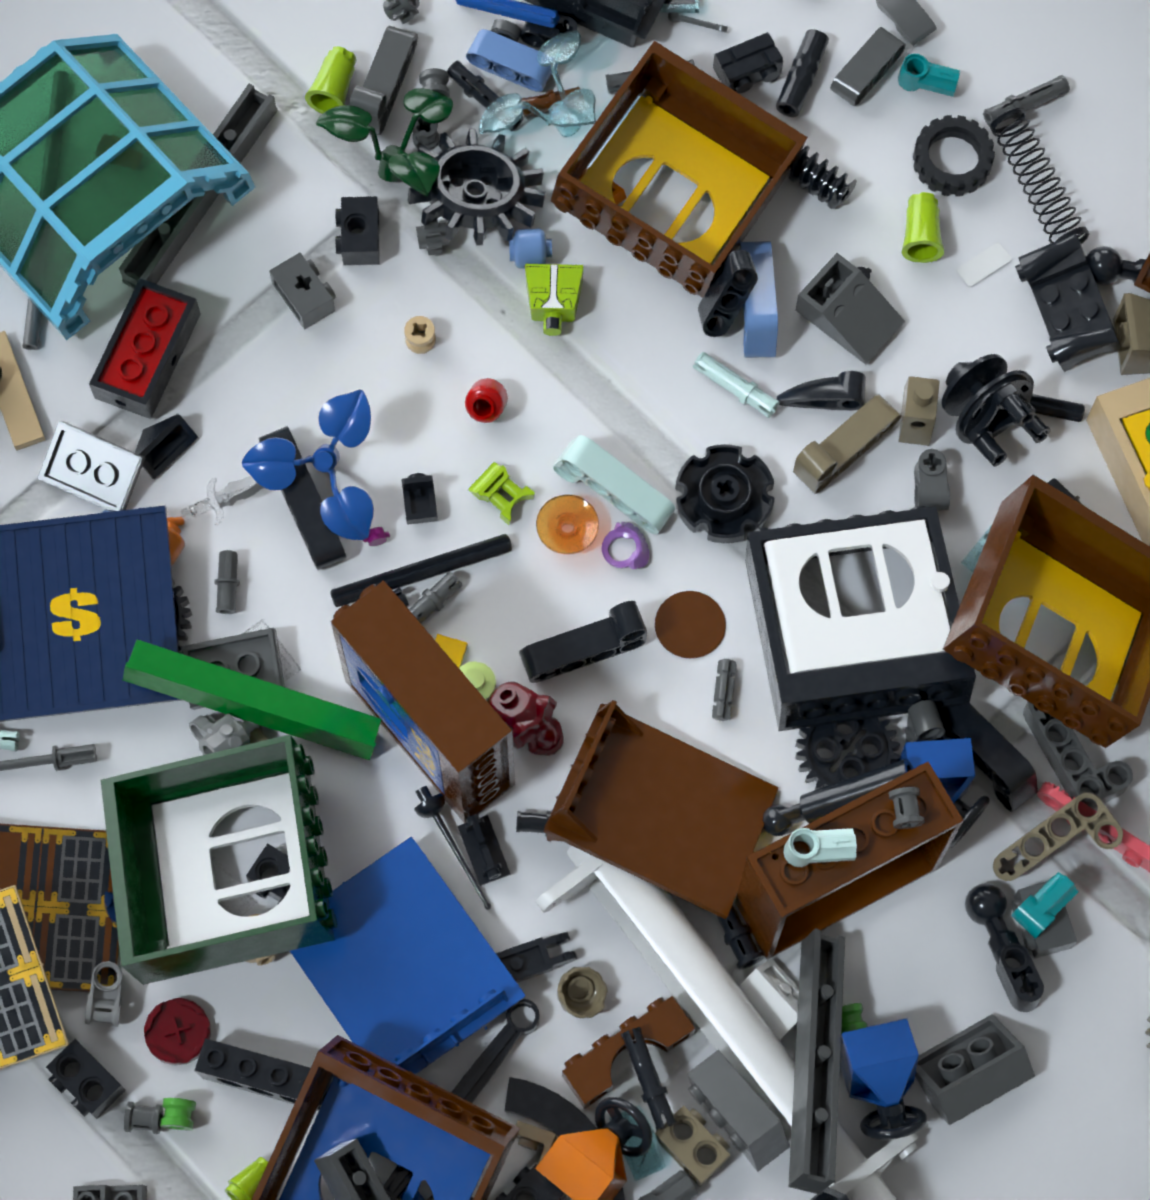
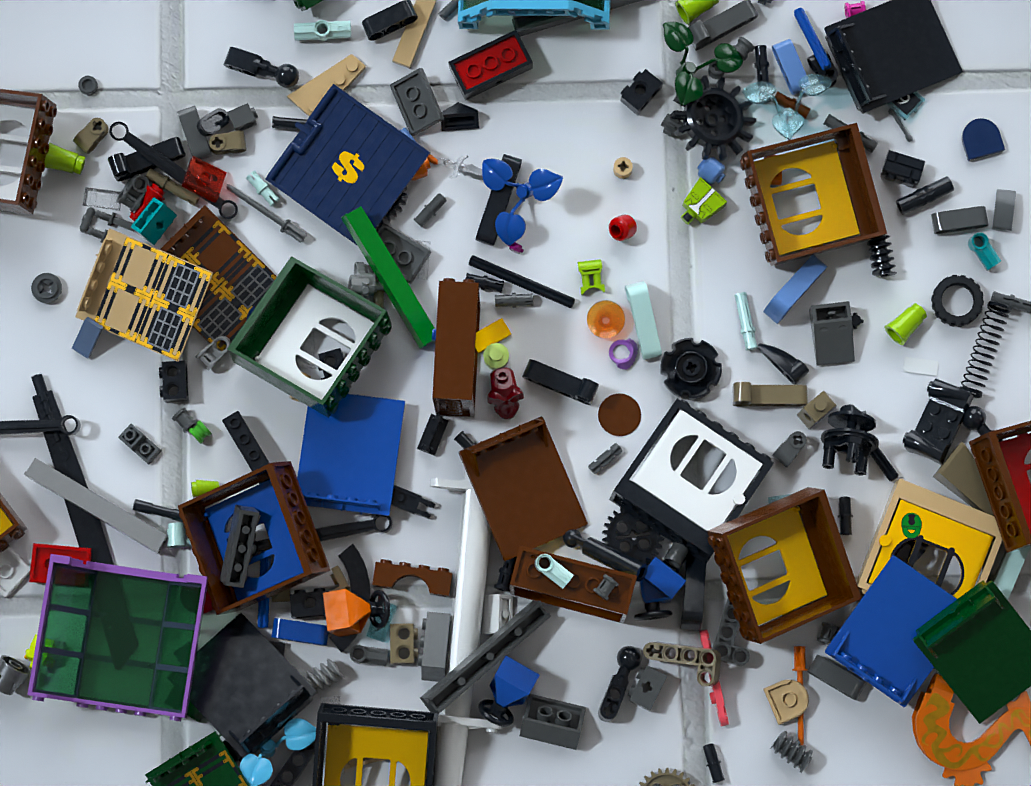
camera: 45 degrees right, 10 degrees up
(177, 1031) = (231, 395): dark red tile -> none
(291, 279) = (586, 88): dark grey brick -> none
(419, 498) = (550, 247): black bracket -> none
(431, 807) = (426, 395): black sword -> none
(506, 29) = (803, 51): dark grey tile -> none
(582, 992) = (416, 536): dark tan hair -> none
(648, 1078) = (407, 599): black pin -> none
(727, 293) = (778, 275): black beam -> none
(852, 1017) = (520, 653): bright green wheel -> none
(1040, 910) = (643, 682): teal piece -> none

